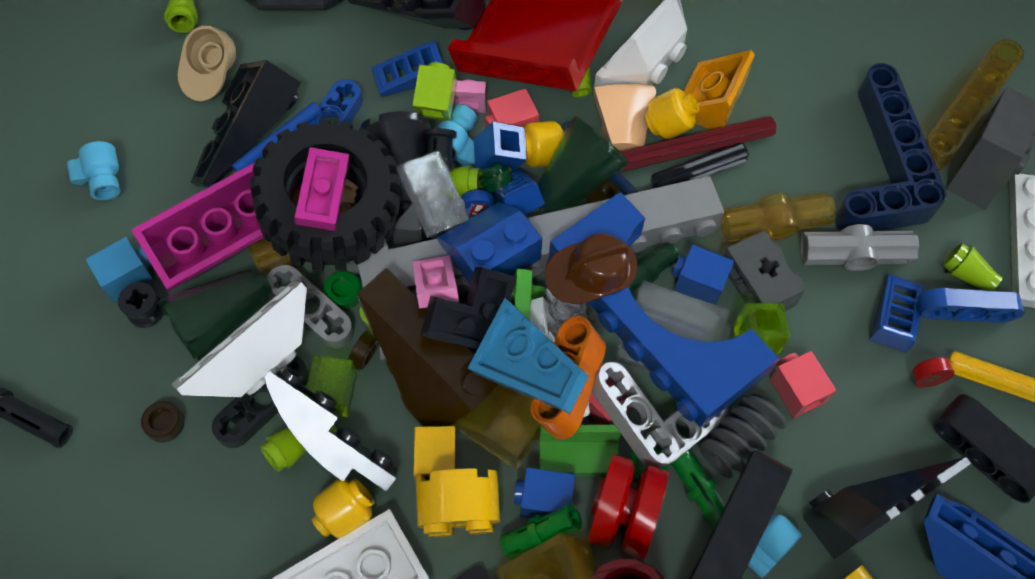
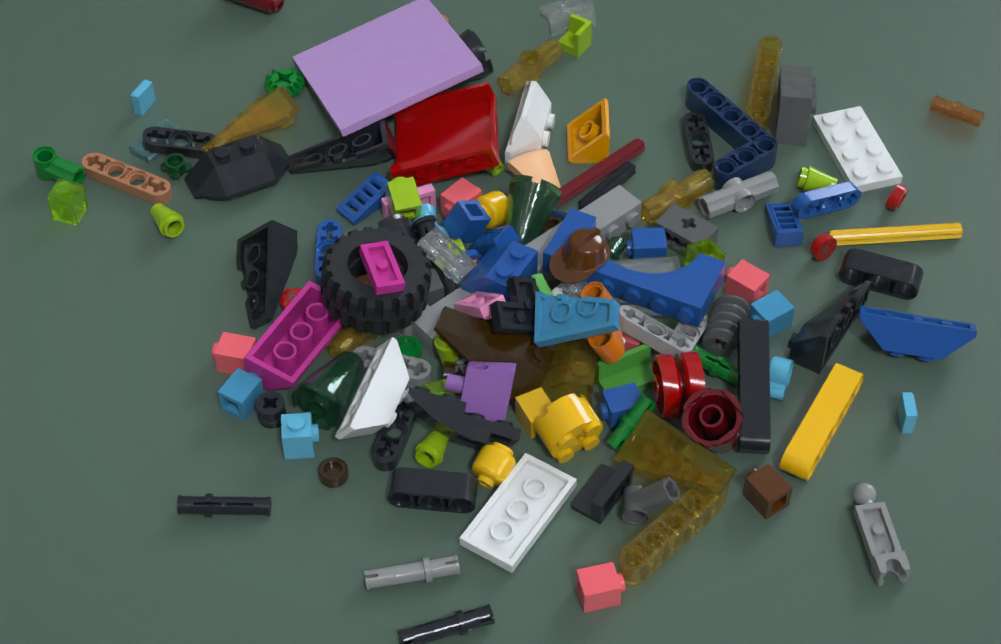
camera: 25 degrees left, 15 degrees down
(97, 166) = (176, 338): medium azure piece -> none
(139, 205) = (230, 352): none -> coral brick
(144, 356) = (298, 435): none -> medium azure brick
(204, 62) = (212, 247): tan cap -> none
(254, 508) = (433, 490): none -> black beam
(307, 114) = (301, 273): blue bar -> none
(382, 400) = (484, 388): none -> medium lavender torso
(495, 176) = (475, 237): dark green plate -> none
(672, 113) = (570, 159): yellow head -> none
(810, 444) = (775, 309): none -> dark azure brick
(850, 164) = (702, 134): none -> black beam

